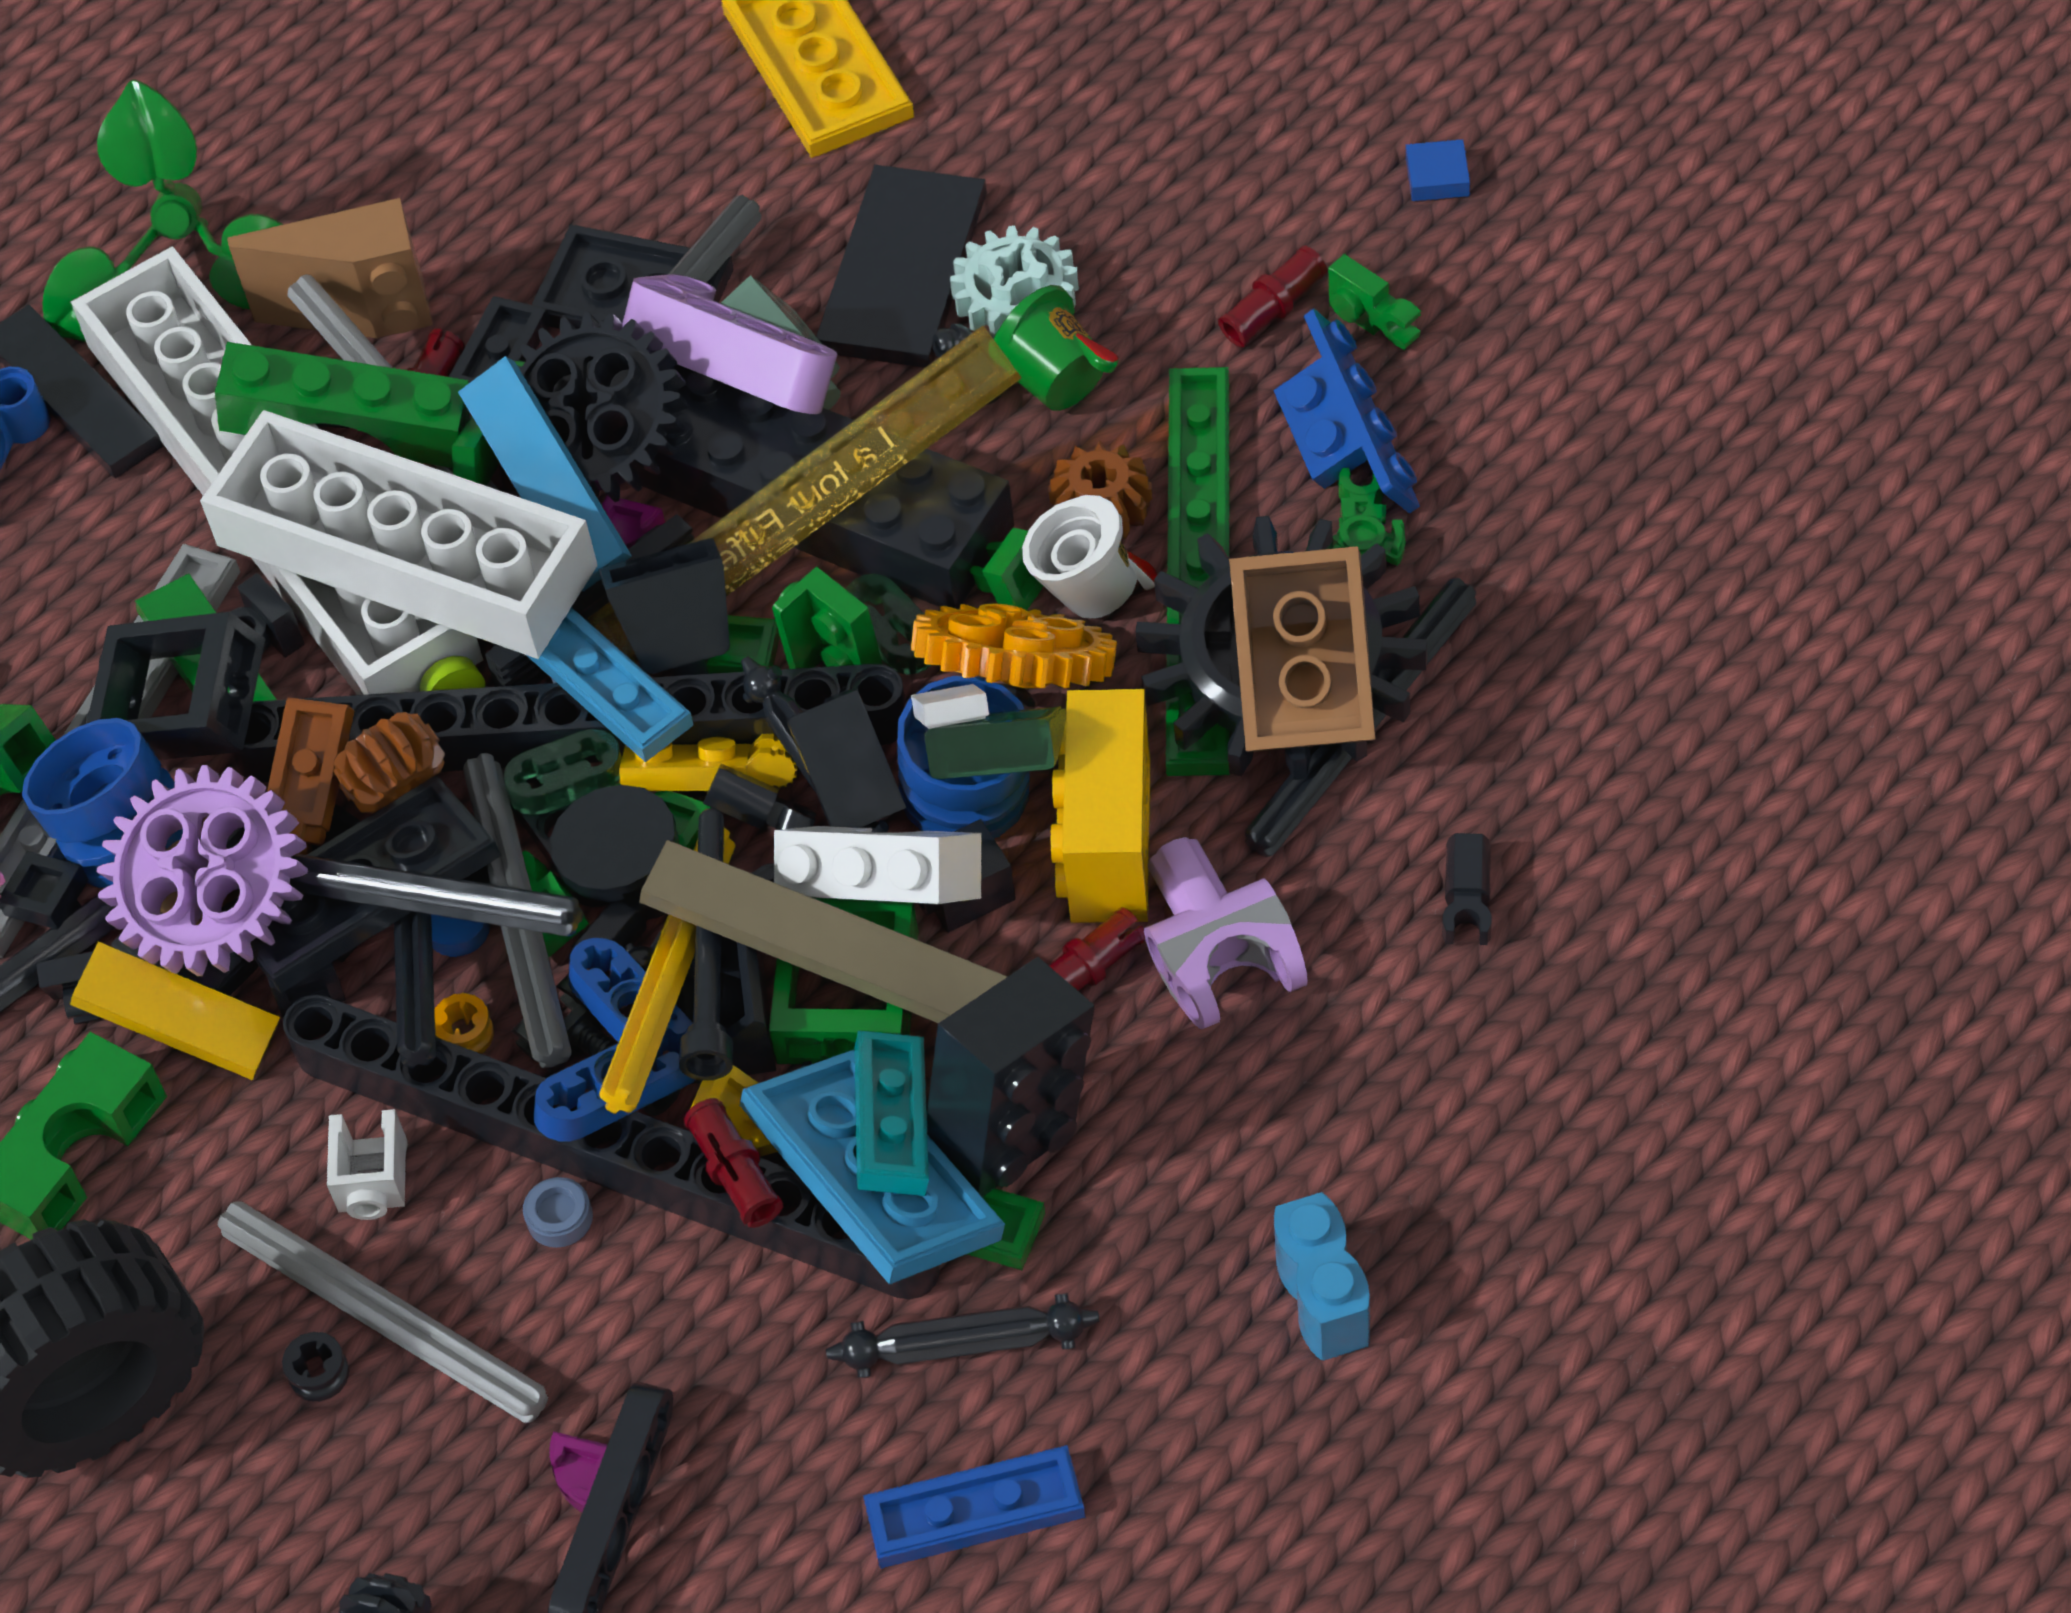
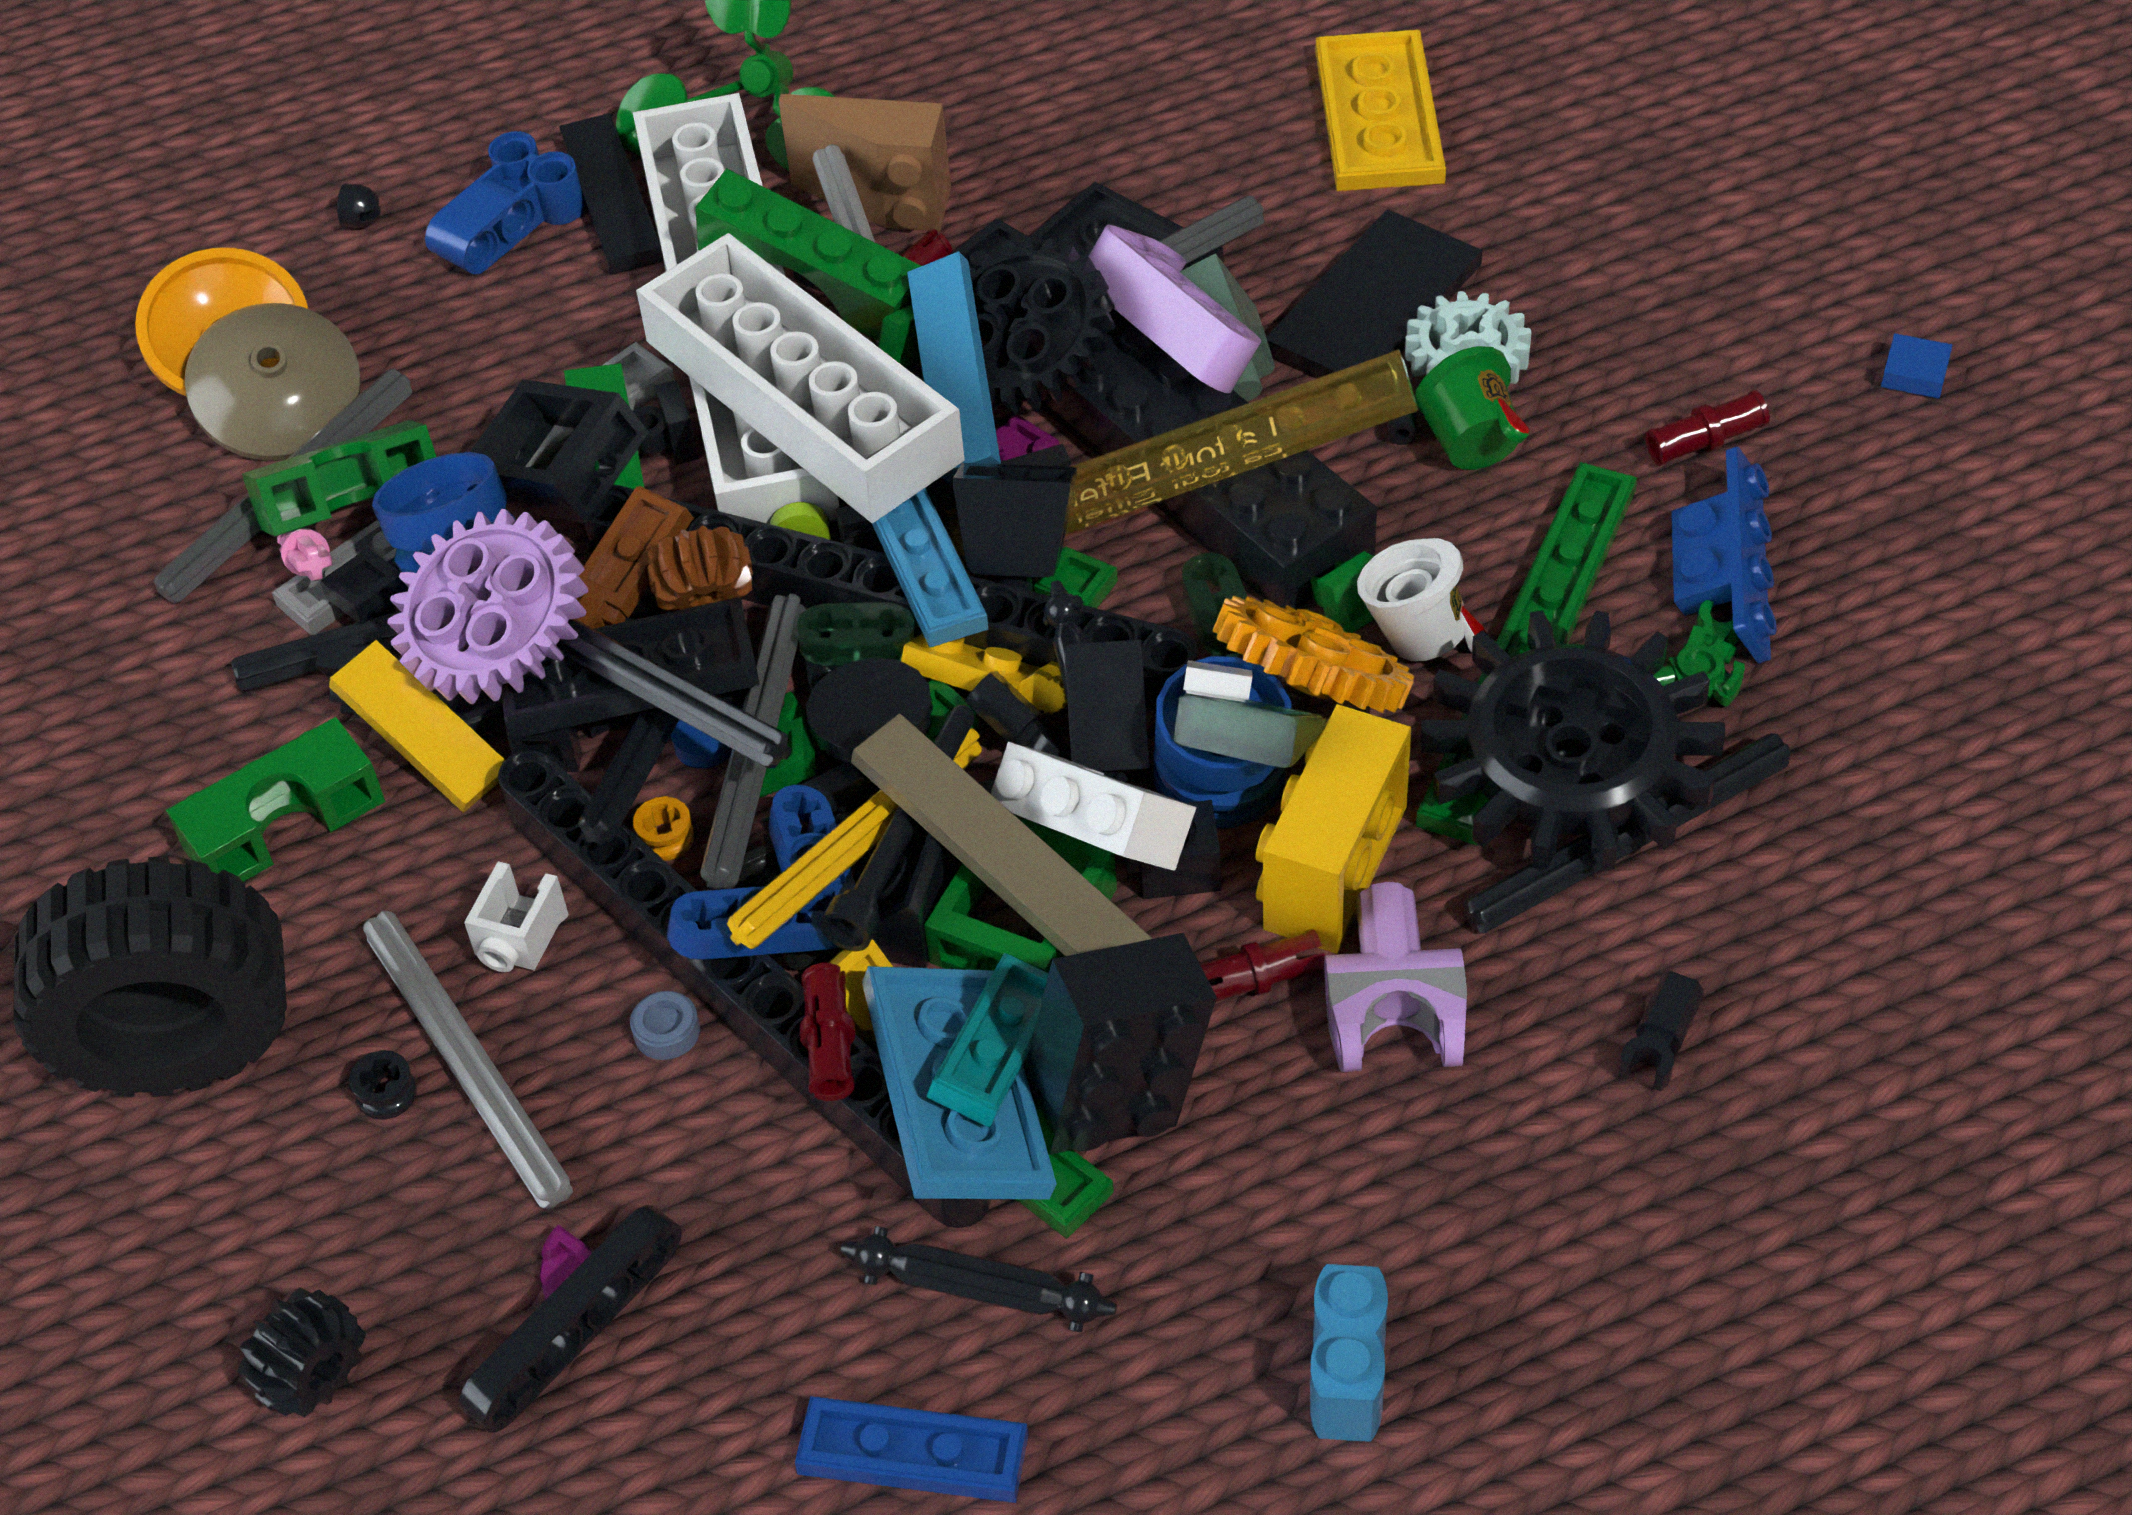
camera: 20 degrees right, 5 degrees down
(825, 624) = (1145, 577): green bracket -> none
(1105, 475) = (1481, 538): dark orange gear -> none
(1302, 649) = (1583, 738): medium nougat slope -> none
(1365, 300) = (1794, 457): green plate -> none

